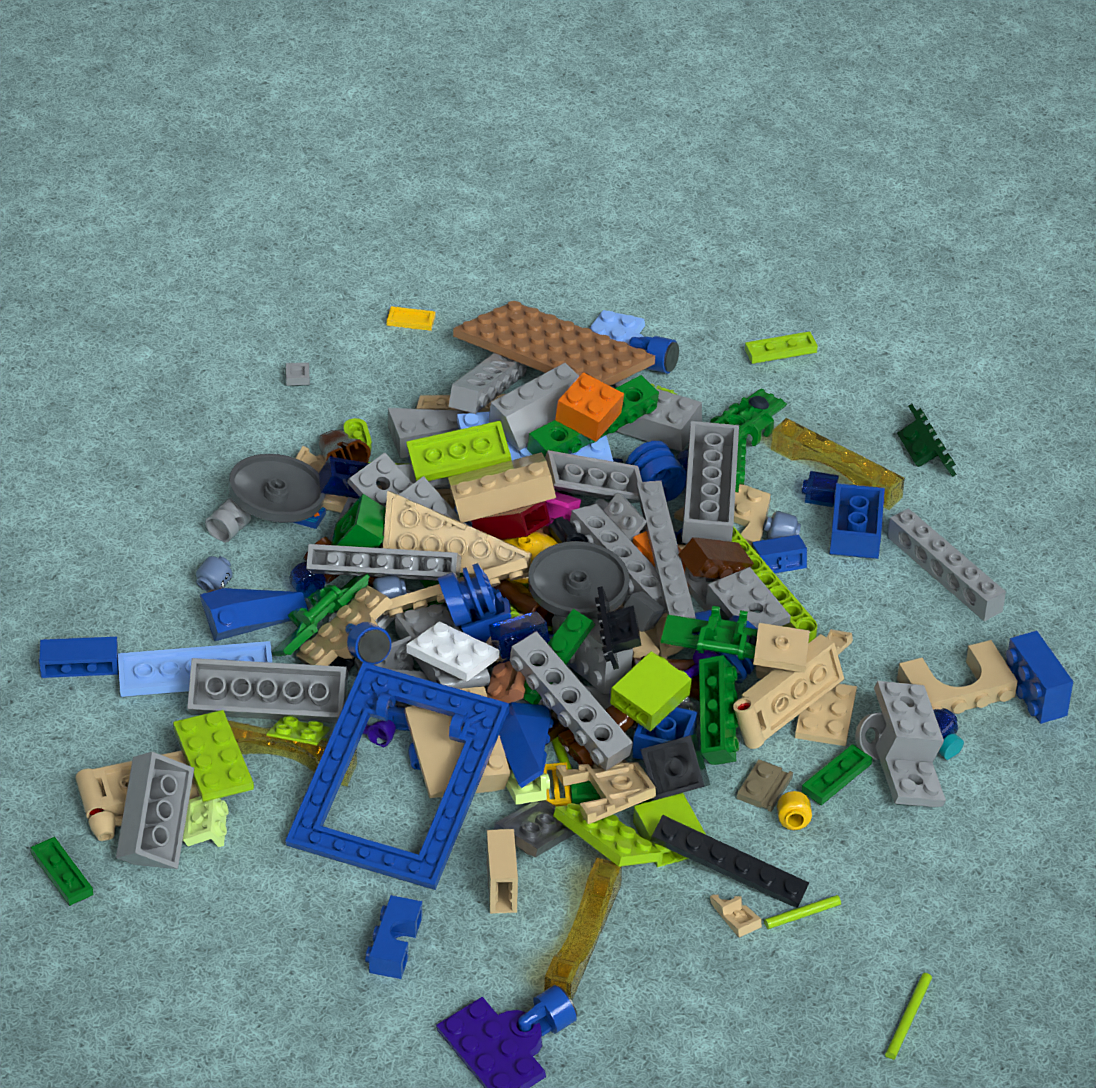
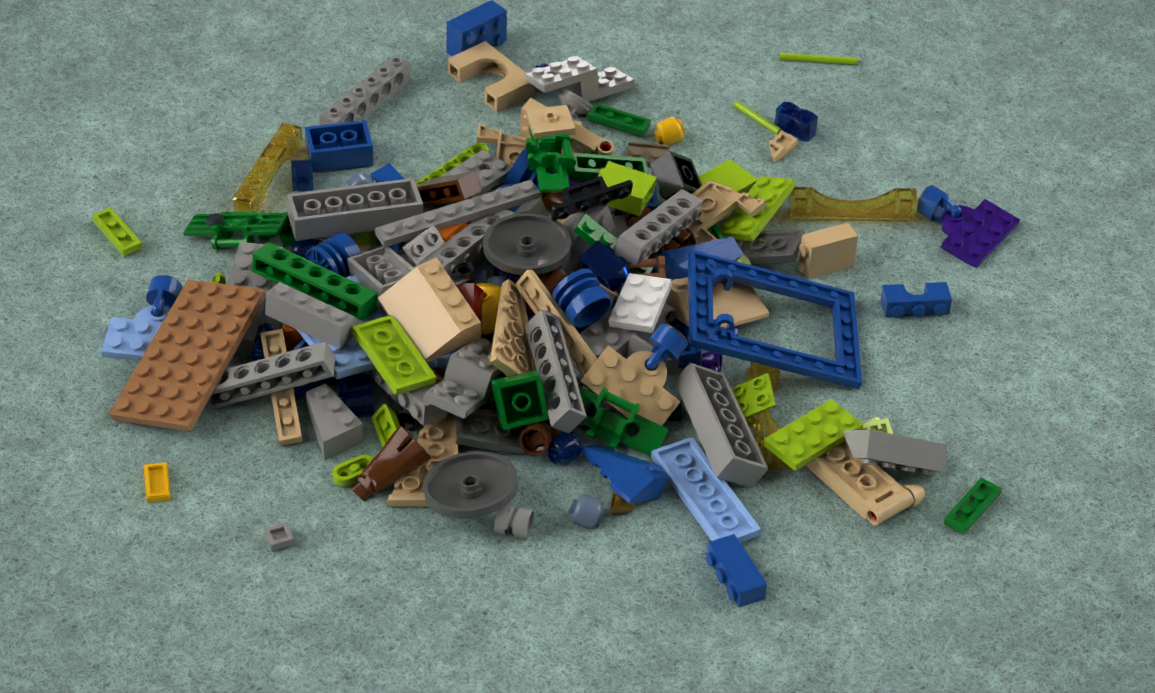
camera: 110 degrees left, 0 degrees up
(335, 475) = (444, 434): clear blue brick -> none
(589, 406) = (322, 264): orange brick -> none
(729, 861) = (744, 147): black plate -> none
(769, 934) = (796, 121): none -> clear blue brick
(921, 444) = (216, 134): dark green bracket -> none

